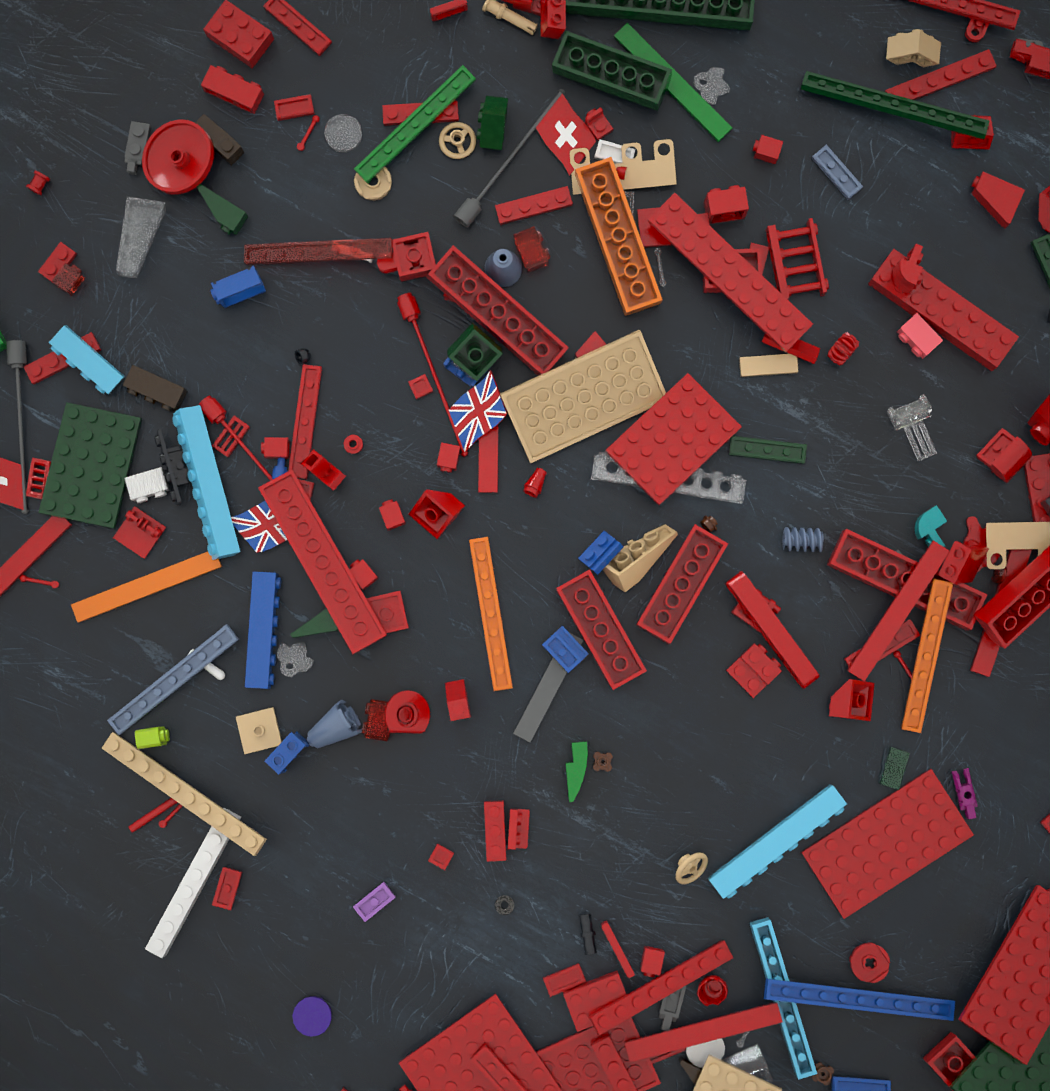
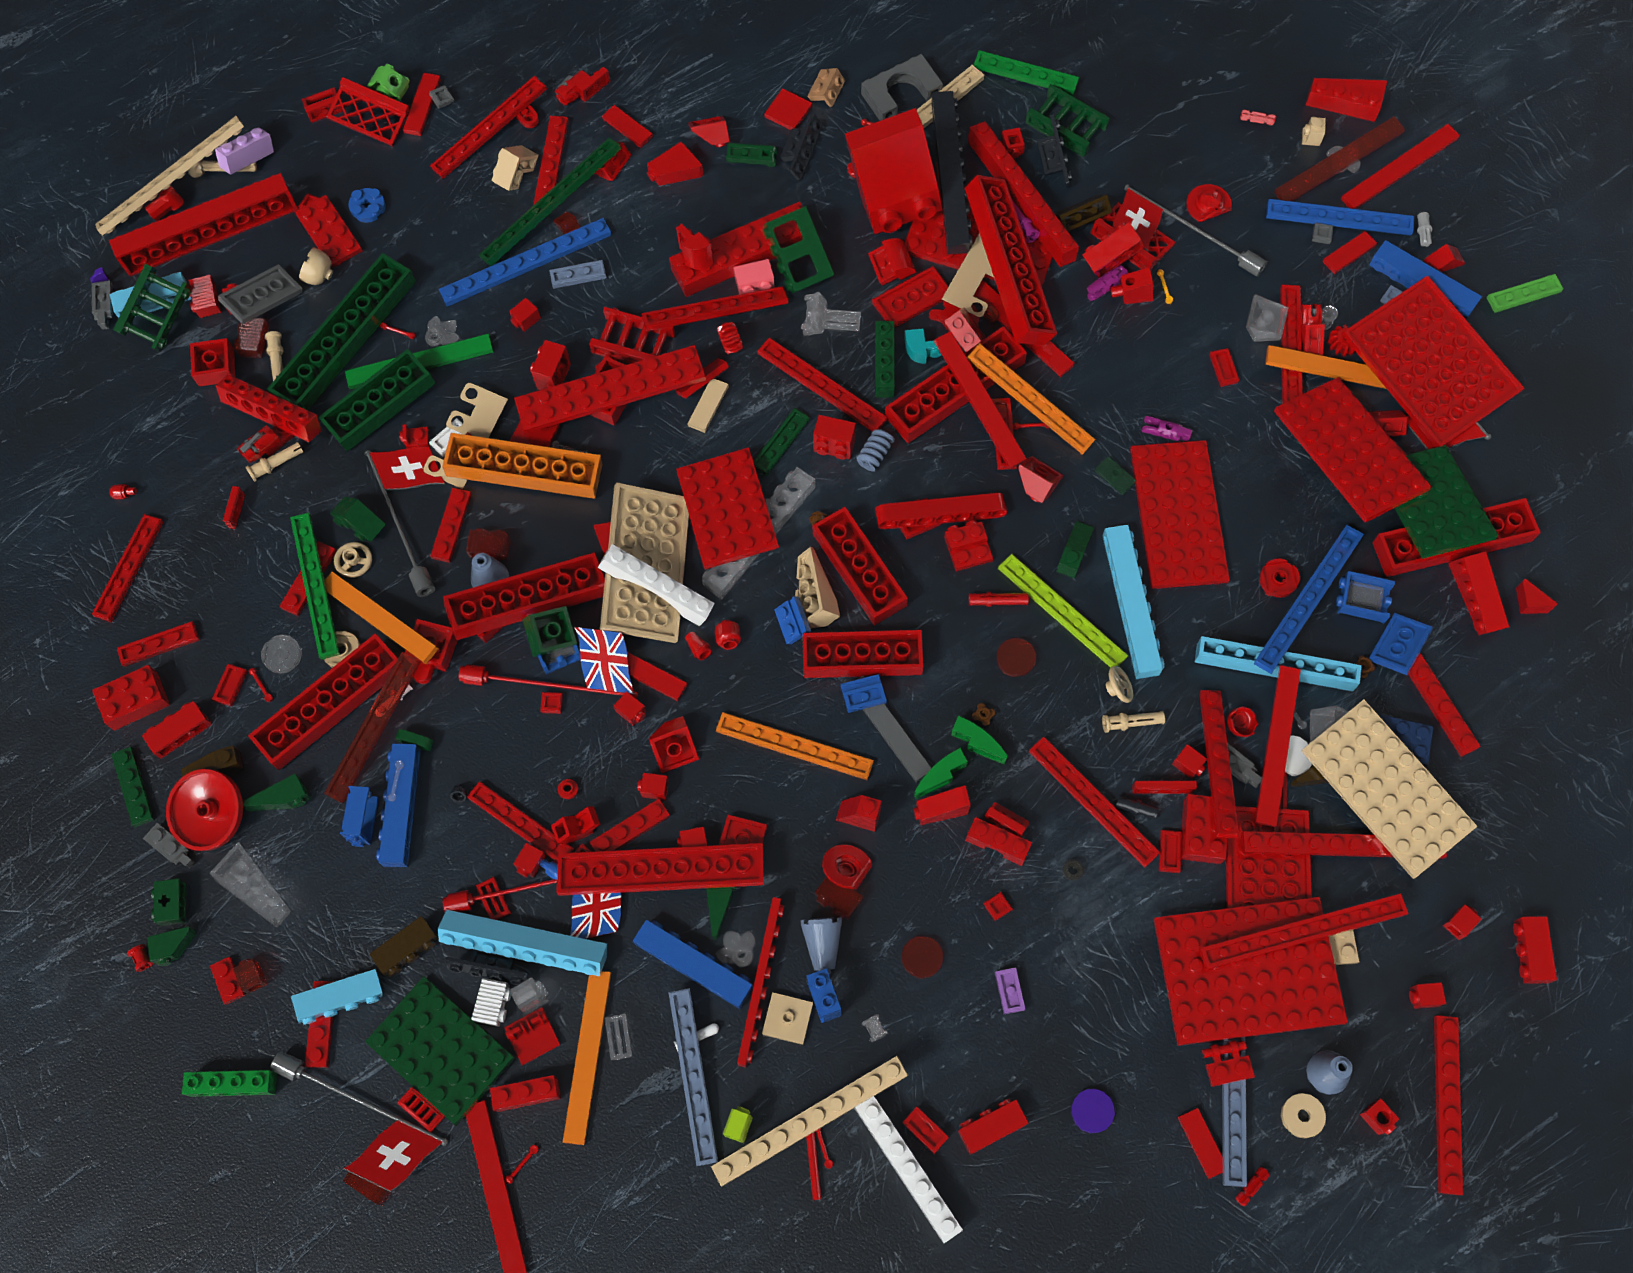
camera: 60 degrees left, 15 degrees down
(57, 199) = (169, 945): none -> dark green slope
(91, 554) = (525, 1093): none -> red brick
(101, 176) = (168, 912): none -> dark green brick
(161, 611) = (608, 1020): none -> clear tile
(166, 513) = (529, 995): none -> clear brick
(168, 84) = (132, 787): none -> dark green plate
(257, 941) = (992, 1126): none -> red brick
(265, 313) = (399, 814): none -> blue brick
(268, 696) = (759, 991): none -> red plate
(286, 806) = (874, 1028): none -> clear bush
(296, 294) = (399, 765): none -> clear hinge
(319, 198) = (325, 702): none -> red brick
(327, 293) = (411, 738): none -> dark green beam
(347, 515) = (631, 827): none -> red plate
(366, 814) = (922, 957): none -> clear red tile
(413, 198) = (380, 618): none -> orange tile
(499, 767) = (943, 806): none -> red slope
(530, 751) = (941, 773): none -> green slope
(558, 503) = (727, 634): none -> red head
(566, 420) = (627, 567): none -> white arch
(573, 894) = (1094, 802): none -> red plate
(659, 885) = (1123, 724): none -> tan pin
(671, 764) = (1016, 657): none -> clear red tile
(694, 60) = (411, 335): none -> red hinge
(717, 722) = (998, 599): none -> red pin
(736, 783) = (1062, 611): none -> lime tile
(792, 497) = (834, 437): none -> red brick
(802, 766) = (1075, 549): none -> dark green slope
(823, 117) = (525, 262): none -> blue plate
(842, 457) = (822, 385): none -> red plate
(866, 319) = (714, 308): none -> red tile
(884, 131) = (566, 223): none -> clear red slope
(891, 1047) = (1364, 596): none -> blue window
(898, 500) = (884, 359): none -> dark green brick
(973, 371) = (809, 245): none -> dark green window
(979, 492) = (911, 297): none -> red tile
(1018, 127) = (627, 126): none -> red tile

